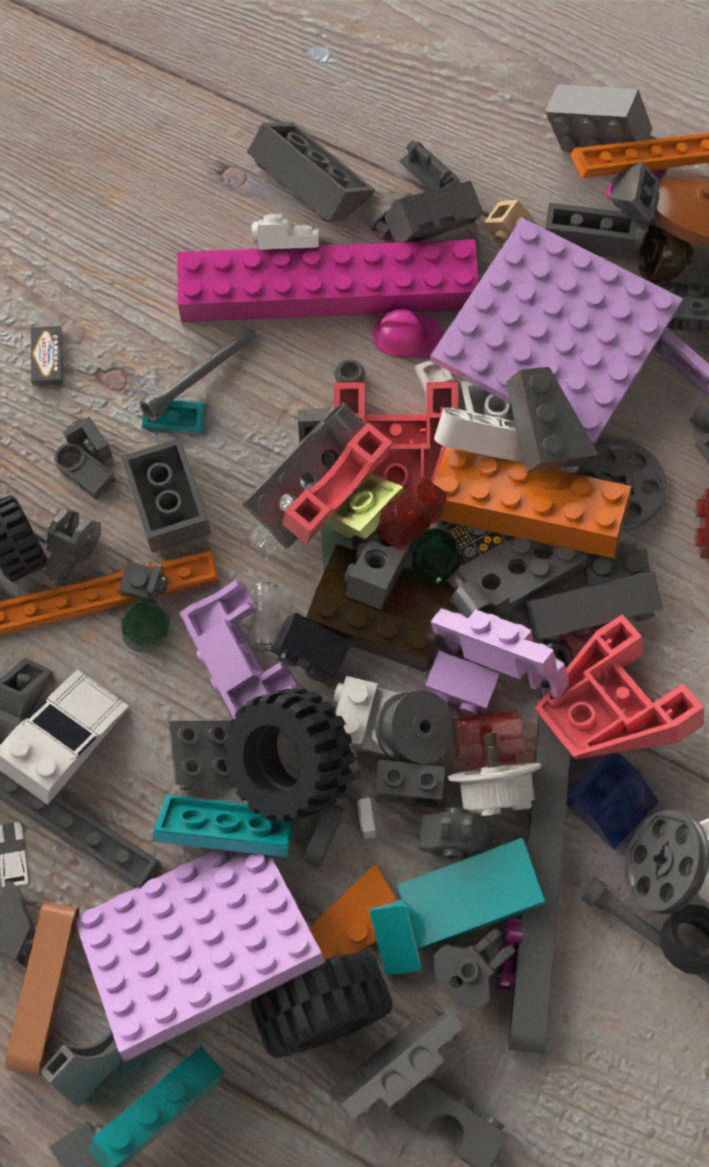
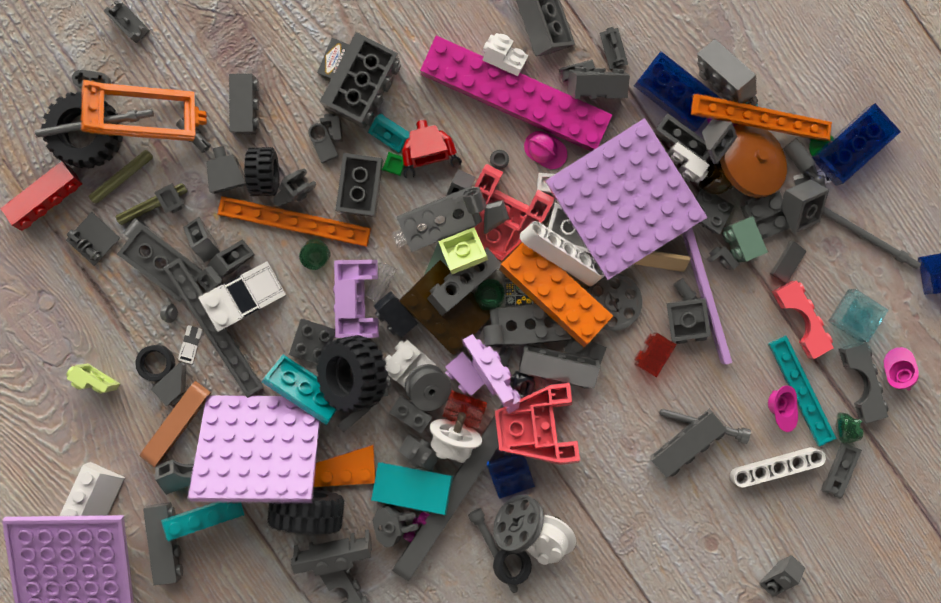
camera: 25 degrees right, 20 degrees up
(100, 356) = (354, 70): none -> dark grey brick
(143, 582) = (324, 230): dark grey bracket -> none
(155, 405) = (379, 127): dark grey piece -> none
(202, 450) = (394, 164): none -> green tile
(239, 400) = (427, 146): none -> torso
(326, 497) = (452, 234): coral arch -> none
(366, 818) = (379, 420): white tile -> none
(393, 433) = (494, 215): none -> dark grey piece
(395, 938) = (362, 489): teal slope -> none
(411, 513) = (484, 272): clear red brick -> none
(505, 218) = (638, 109): tan brick -> none
(538, 176) = (673, 90): none -> clear blue brick
(546, 422) = (584, 260): dark grey wedge -> none
(617, 246) = (691, 167): none -> white plate
(655, 396) = (665, 261): none -> tan slope

